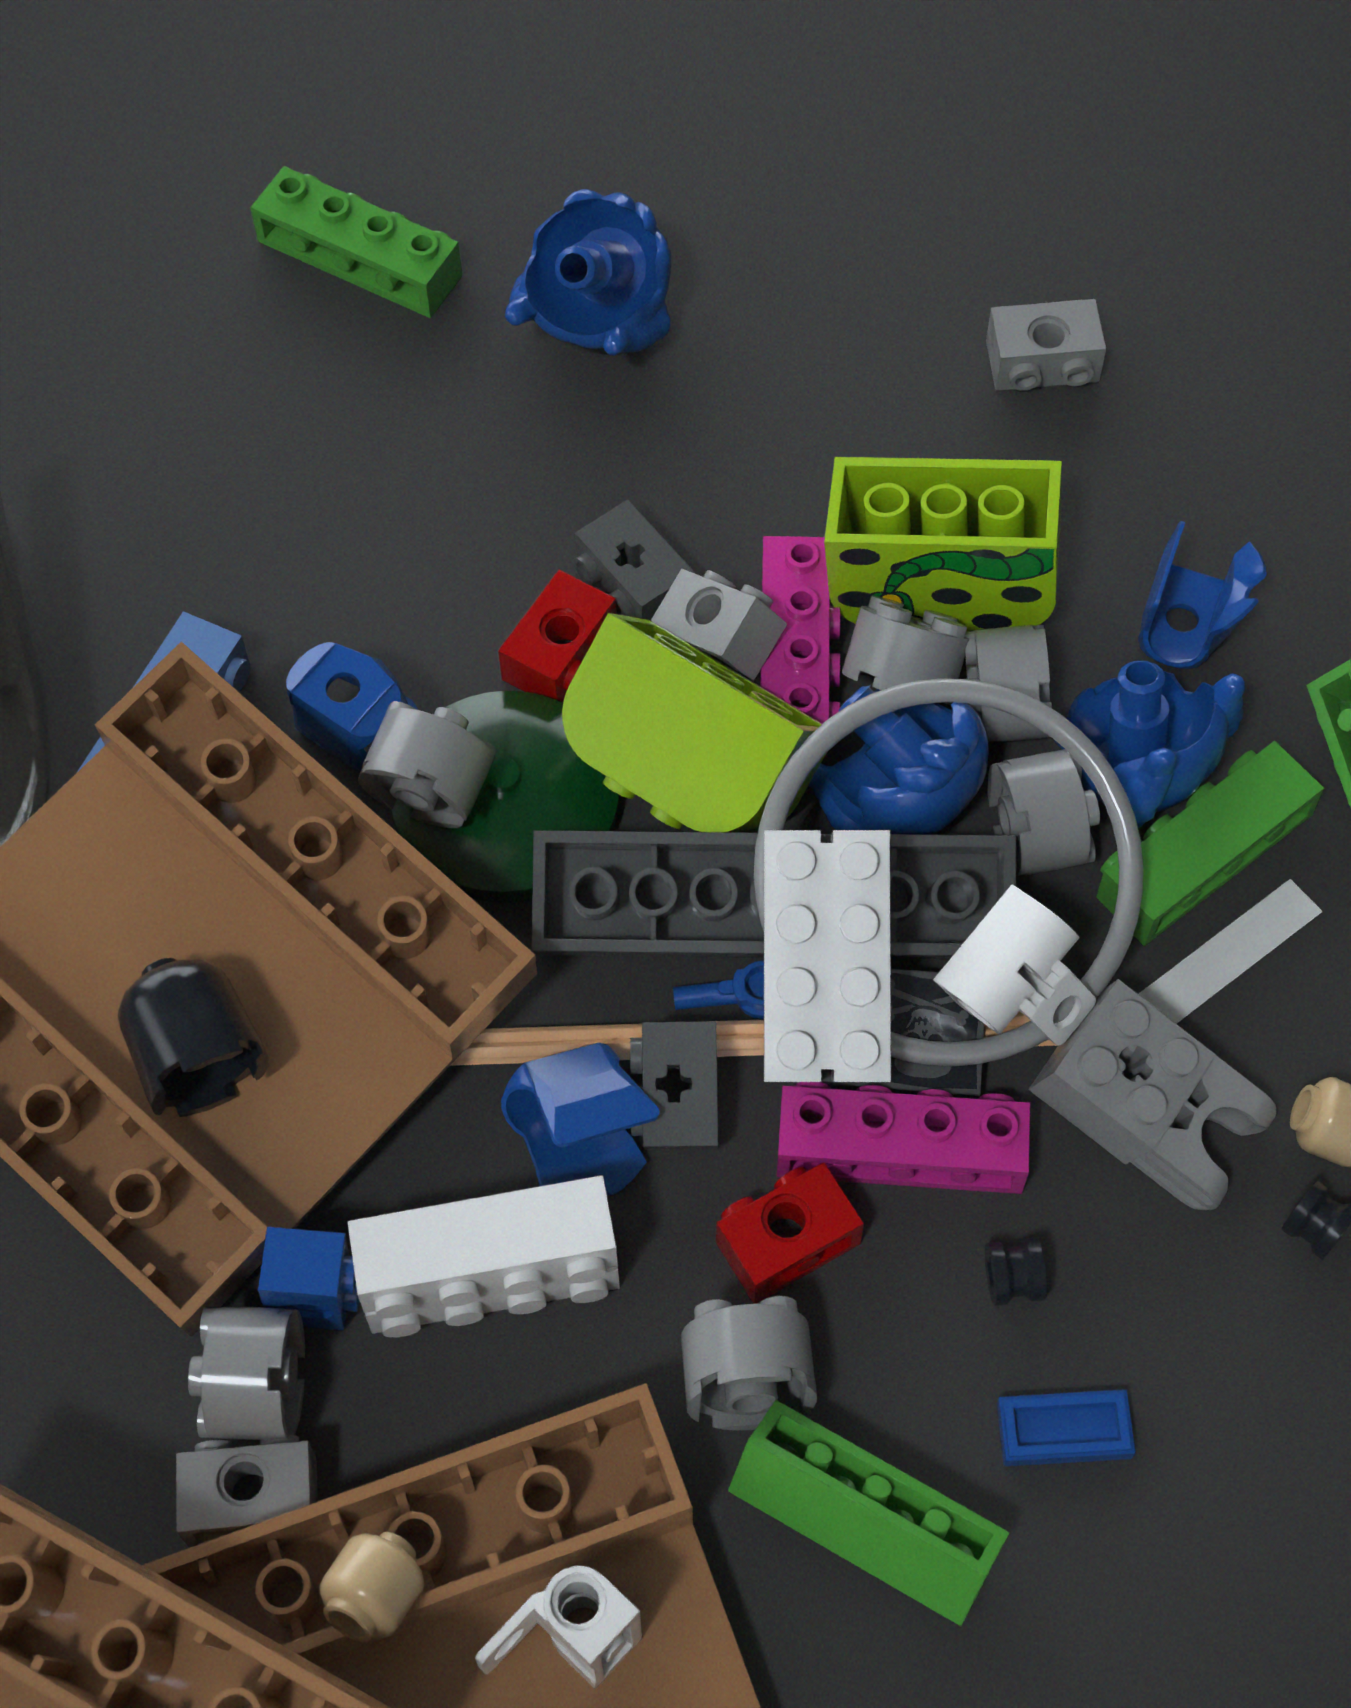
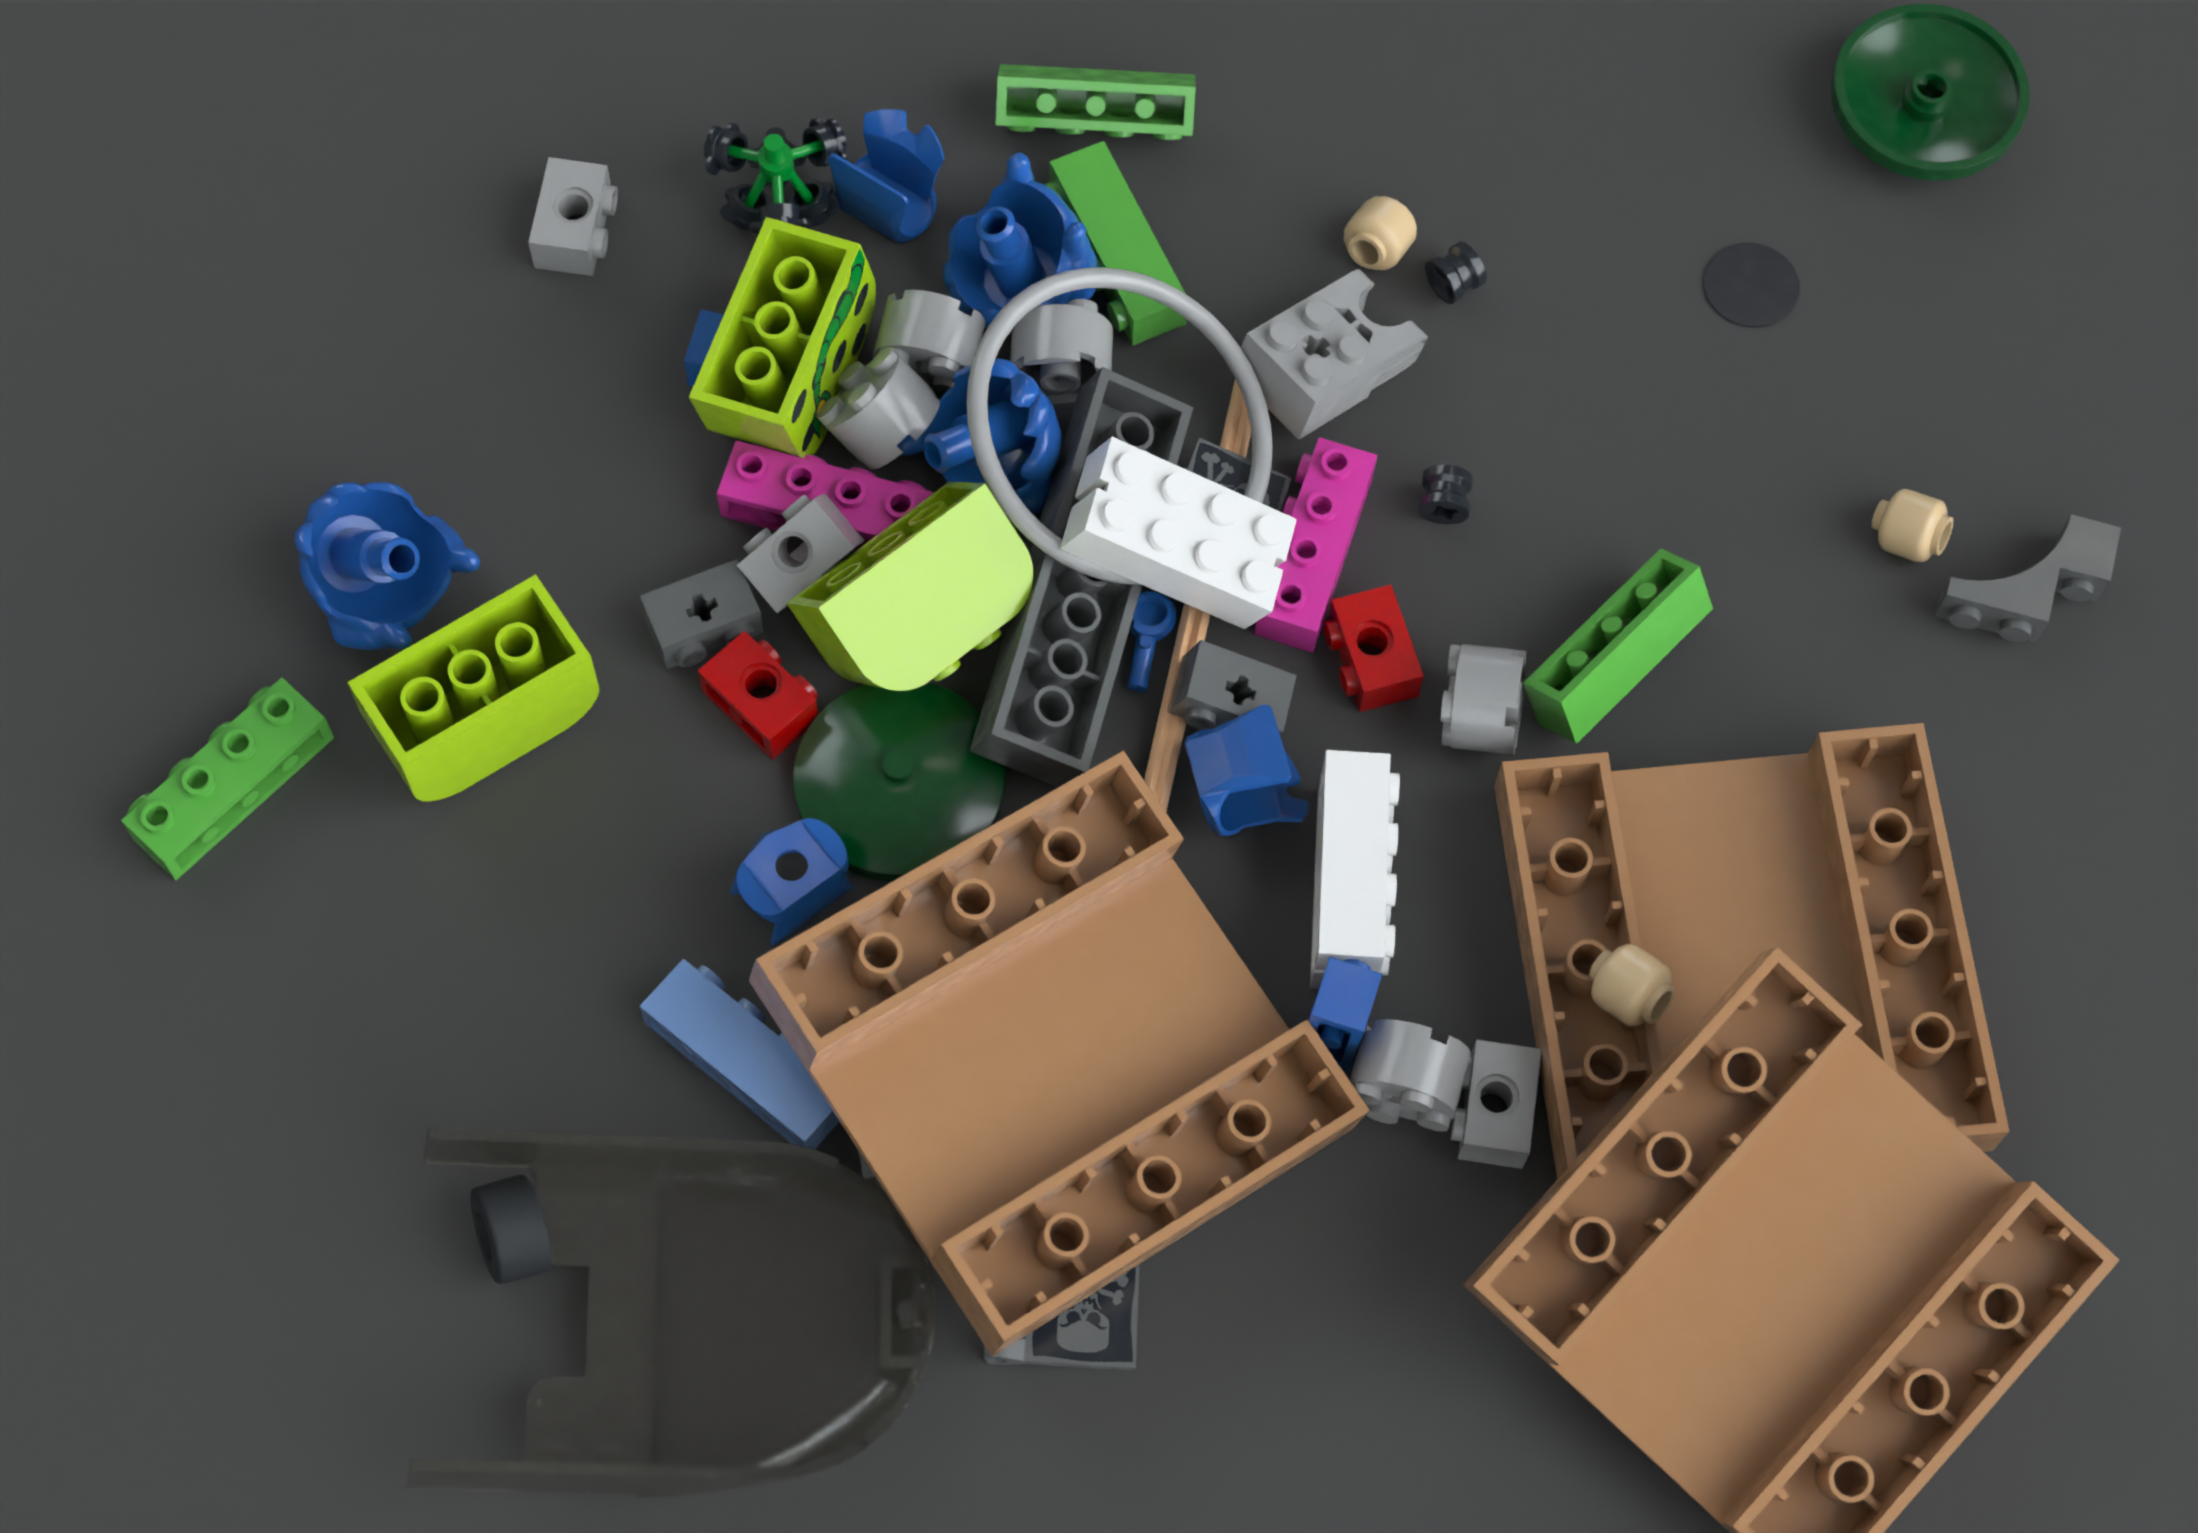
camera: 80 degrees left, 5 degrees up
(189, 1036) = (1119, 1045): black cylinder -> none
(427, 764) = (890, 812): light grey brick -> none
(467, 380) = (478, 692): none -> lime brick
(589, 1647) = (1682, 853): white piece -> none
(1017, 966) = (1226, 397): white piece -> none
(1065, 1428) = (1571, 500): blue tile -> none
(1161, 483) = (776, 158): none -> black plant
(1231, 952) = (1204, 264): white sticker -> none

